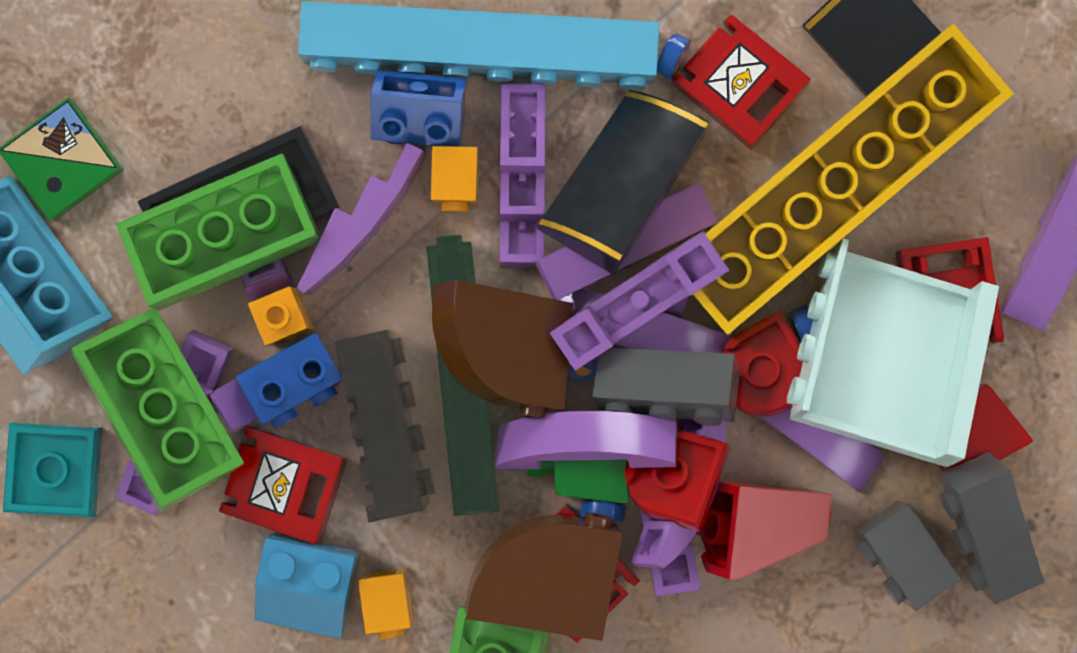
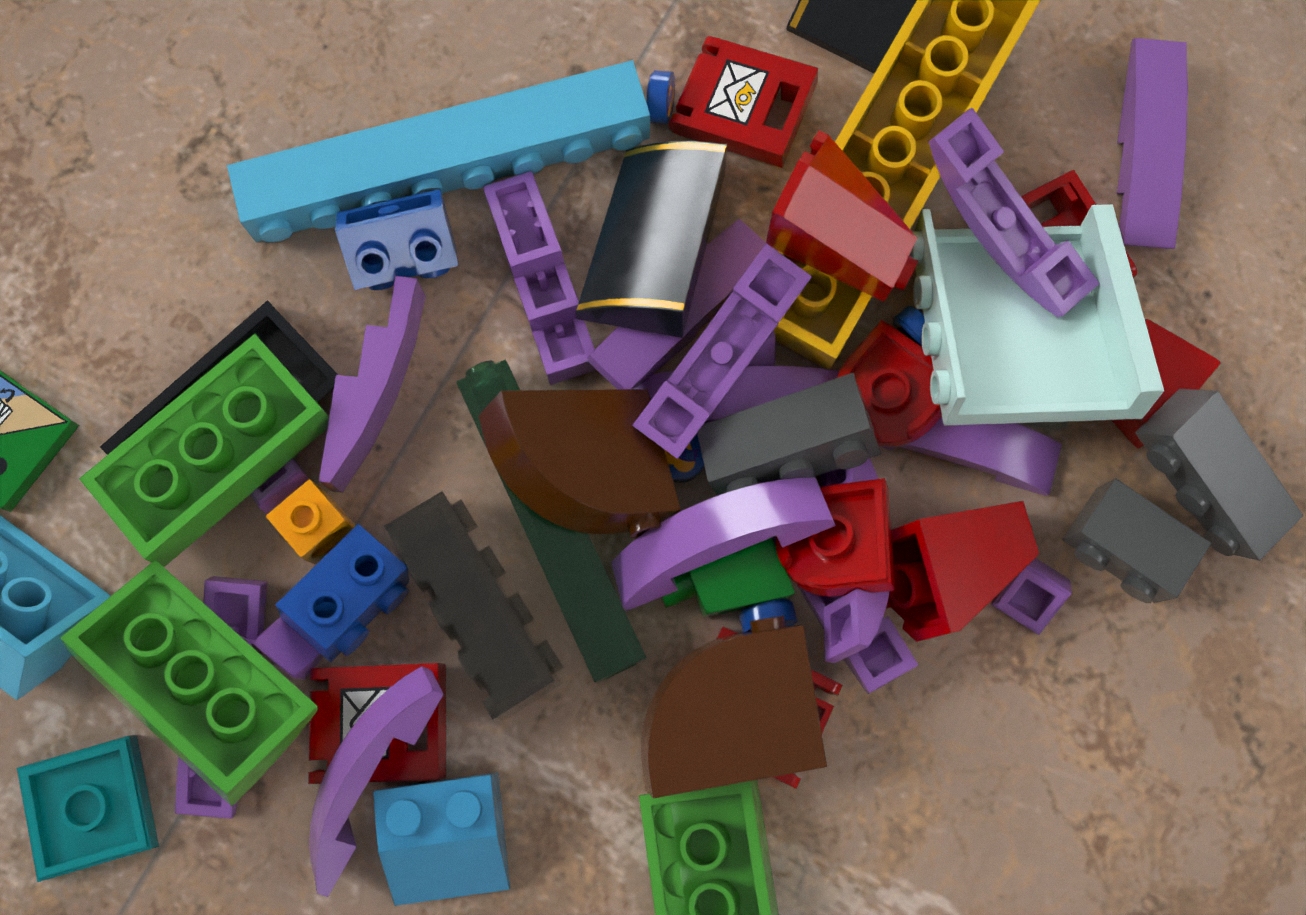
camera: 25 degrees left, 10 degrees down
(299, 489) = (397, 714): none -> medium lavender slope
(386, 603) = (549, 823): light orange brick -> none
(454, 178) = (464, 301): light orange brick -> none
(770, 235) = (841, 223): none -> slope
(816, 565) = (1034, 596): none -> medium lavender slope
(905, 270) = (1003, 221): none -> medium lavender slope

